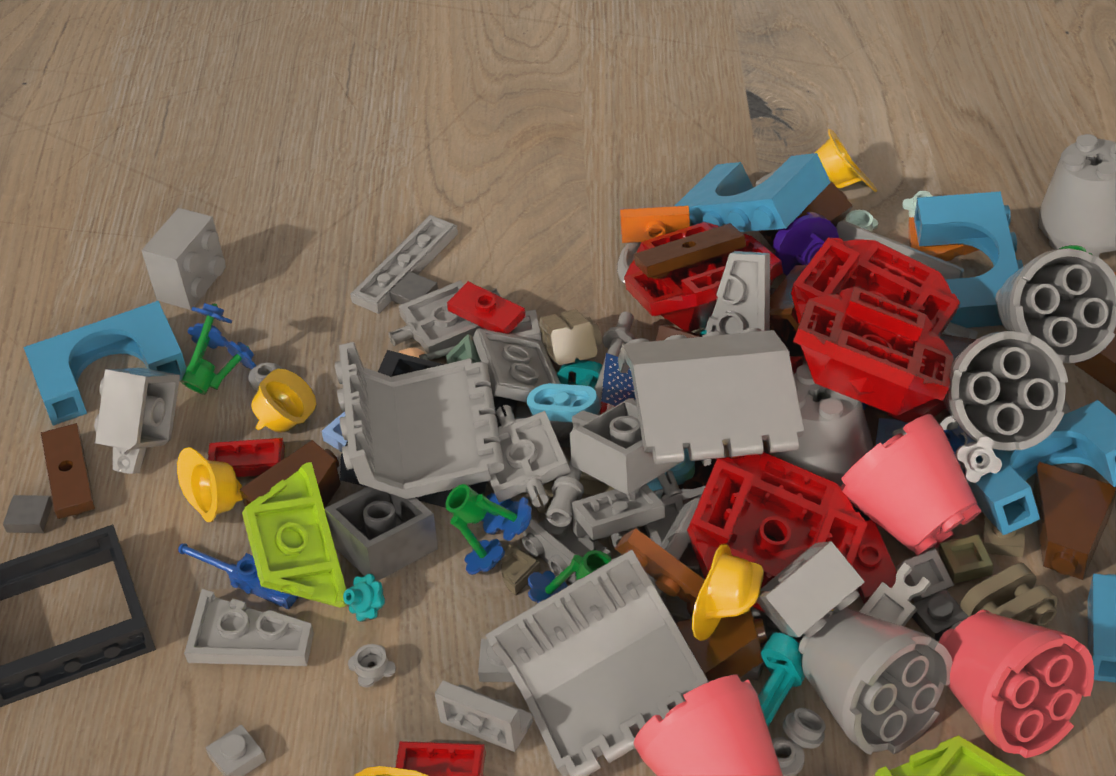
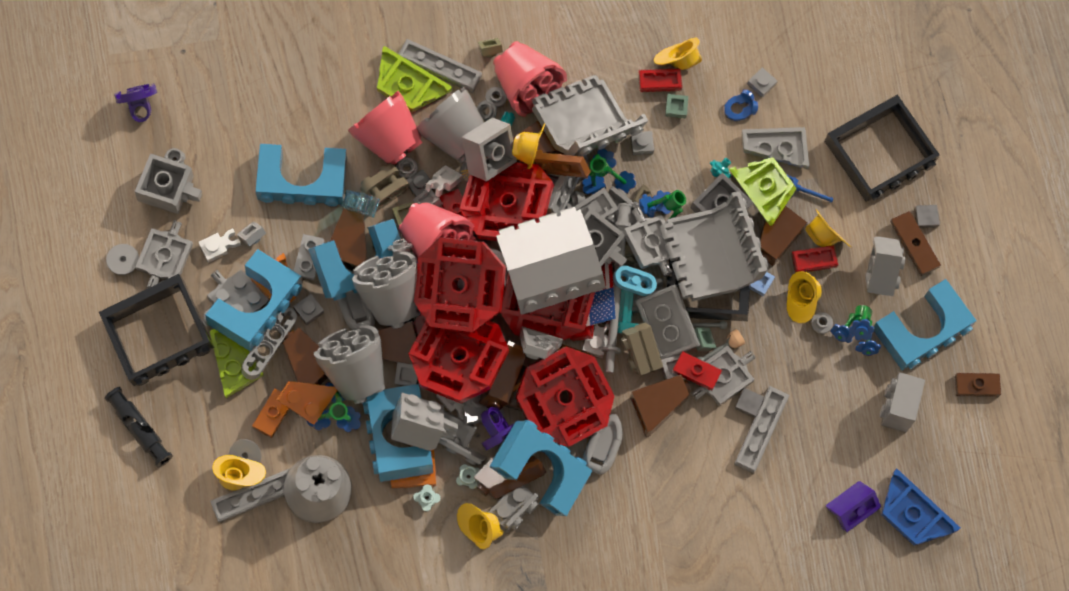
camera: 160 degrees right, 25 degrees up
(60, 298) = (978, 384): none -> reddish brown plate
(221, 167) = (914, 512): none -> blue wing
(272, 704) = (745, 97): none -> blue piece
(303, 178) = (854, 505): none -> dark purple panel
(368, 656) = (707, 128): light grey plate -> none
(416, 714) = (676, 106): none -> sand green plate
(482, 715) = (643, 101): light grey bracket -> none
(555, 284) = (659, 402): none -> reddish brown slope
(648, 223) = (601, 447): orange plate -> none
(689, 251) = (586, 400): reddish brown tile -> none
(940, 234) = (421, 422): none -> light grey hinge
(1060, 561) = (360, 203): none -> clear light blue leg

